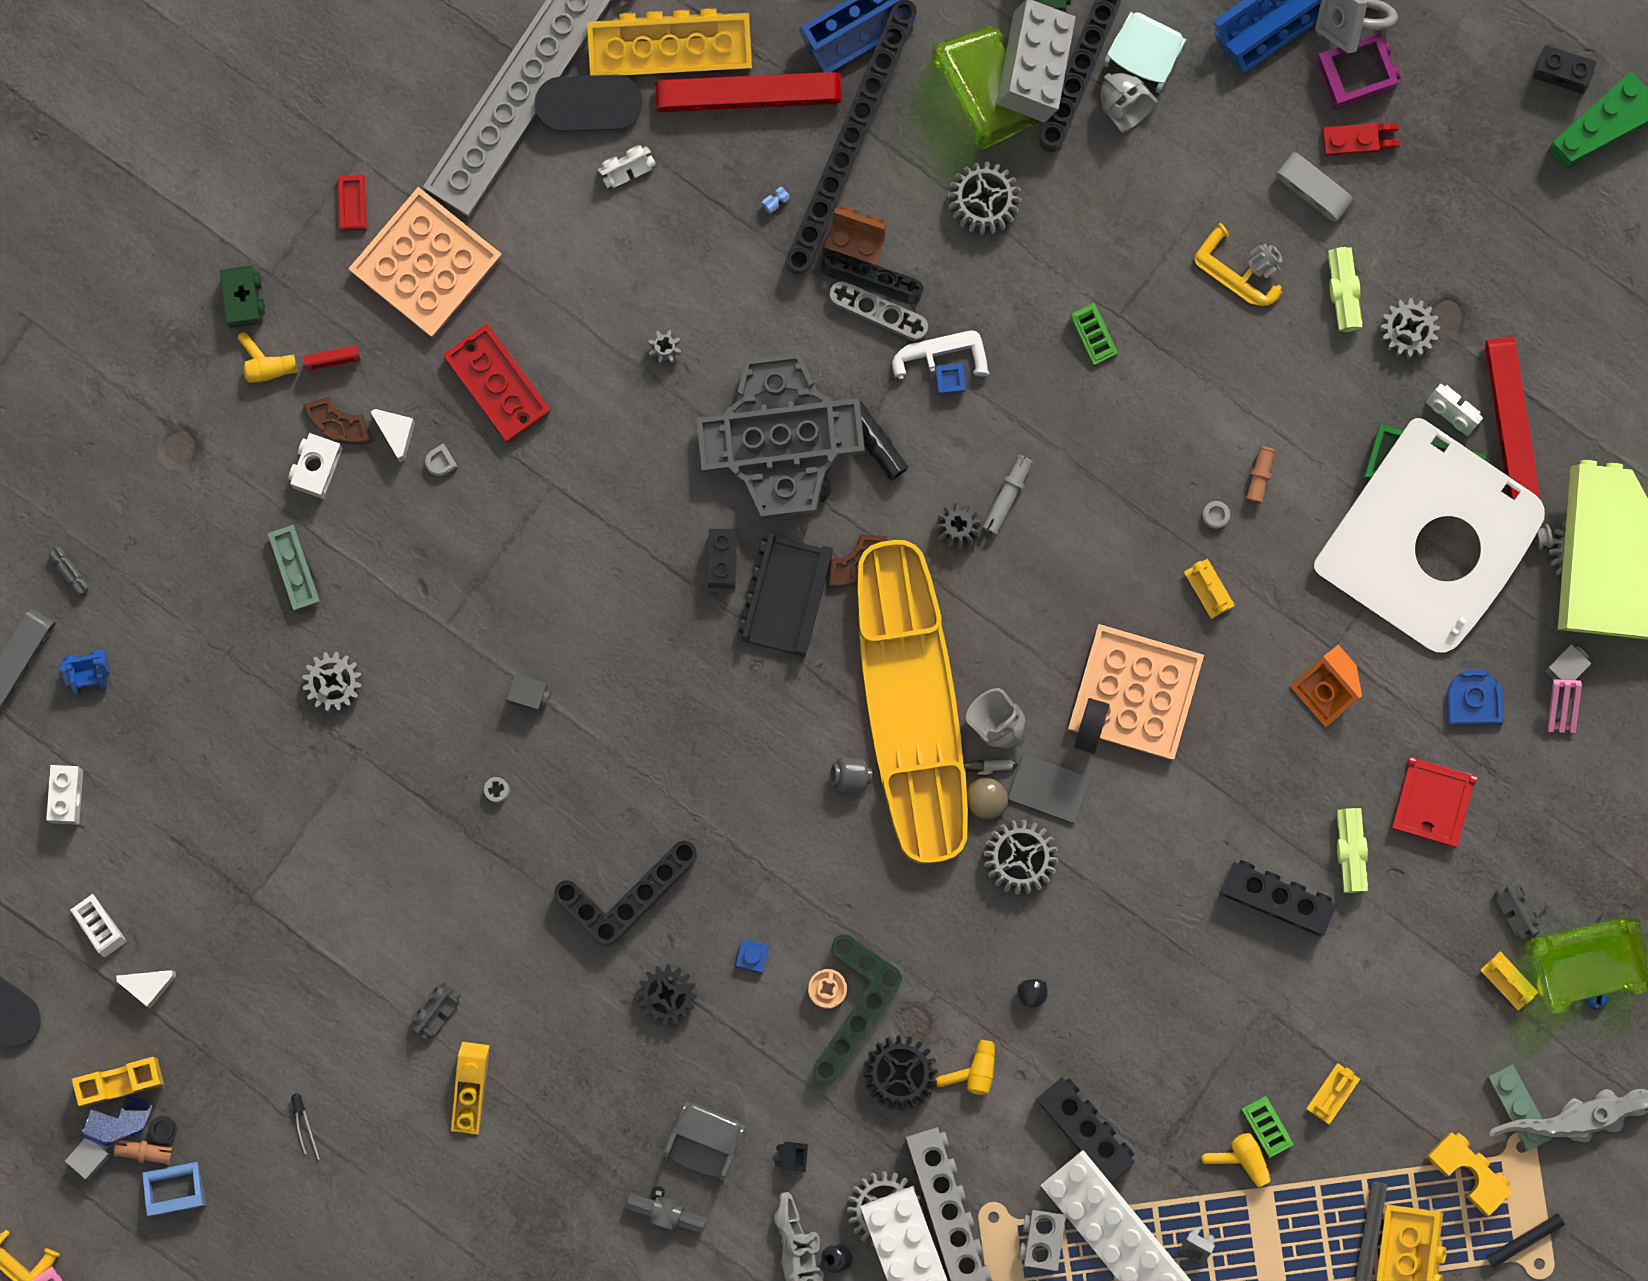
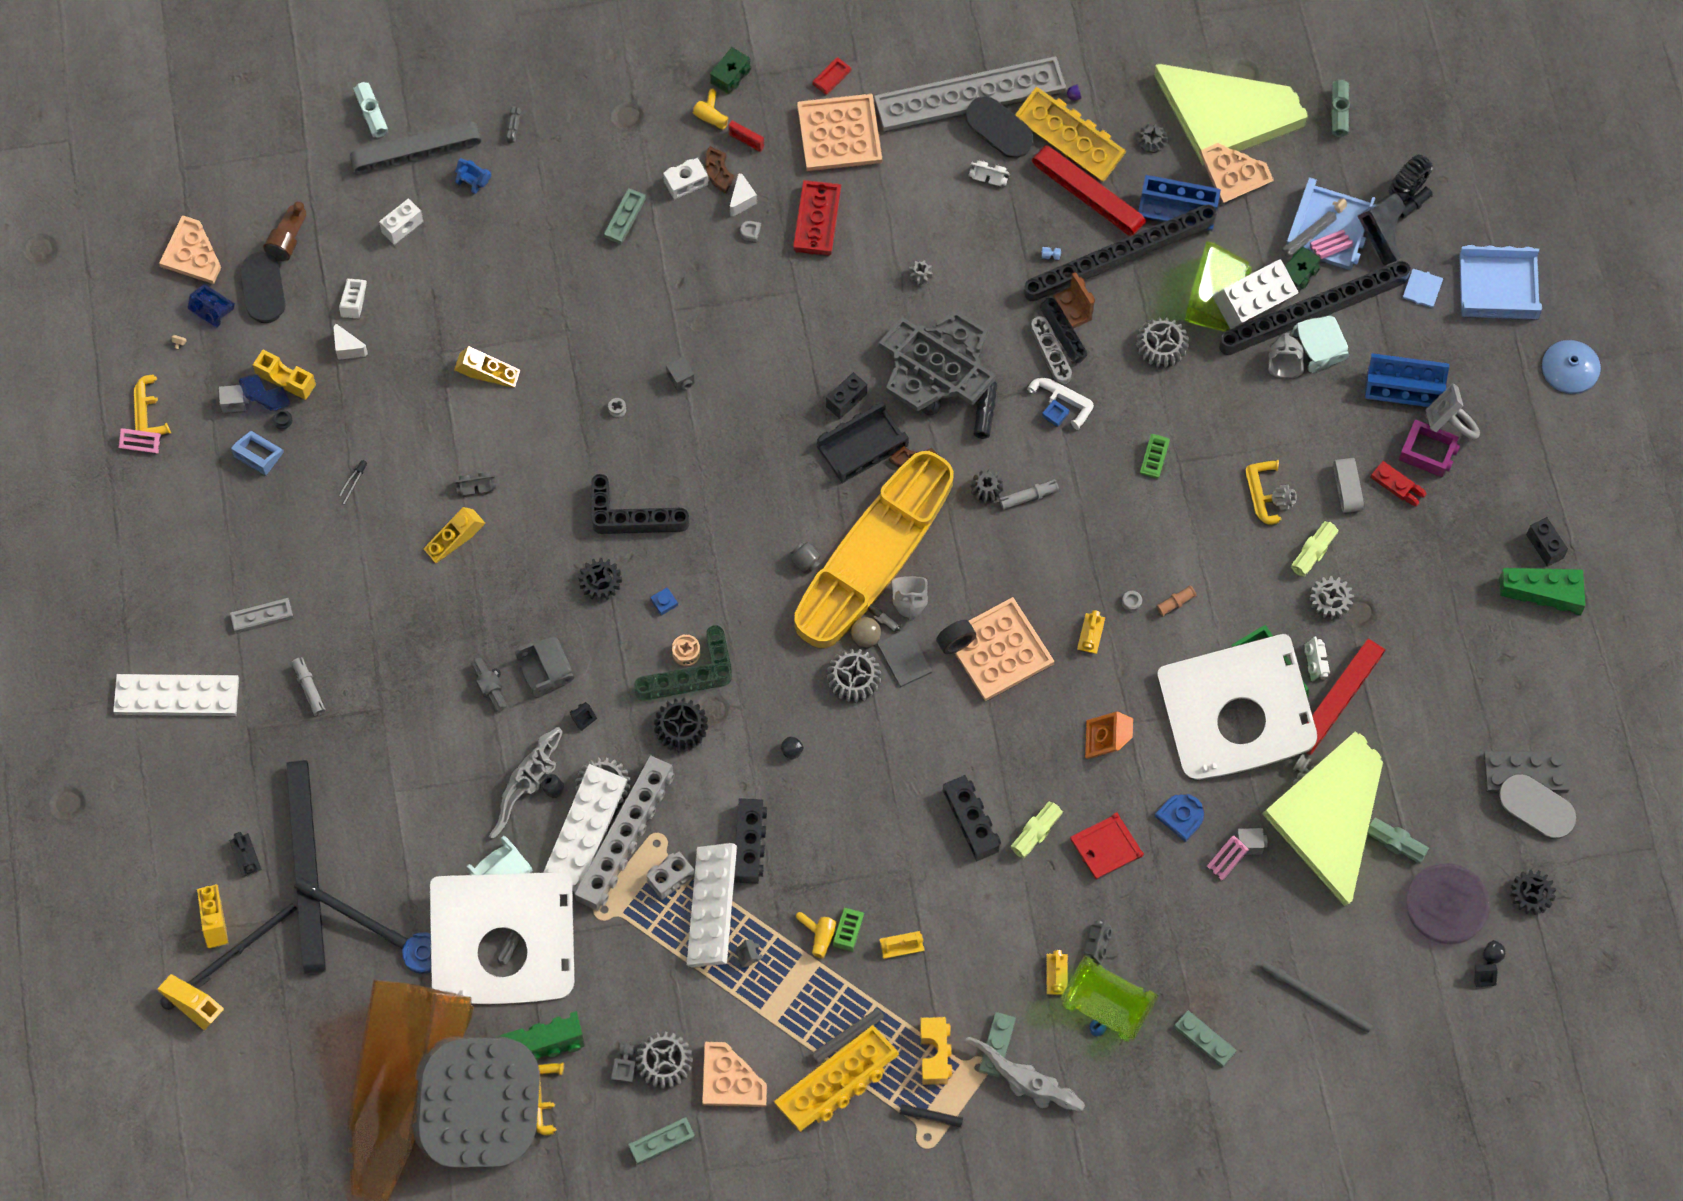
camera: 45 degrees right, 15 degrees down
(143, 1151) = (261, 420): nougat pin -> none
(320, 874) = (486, 368): none -> yellow slope
(338, 670) = (579, 287): light grey gear -> none
(979, 1075) = (721, 763): yellow piece -> none

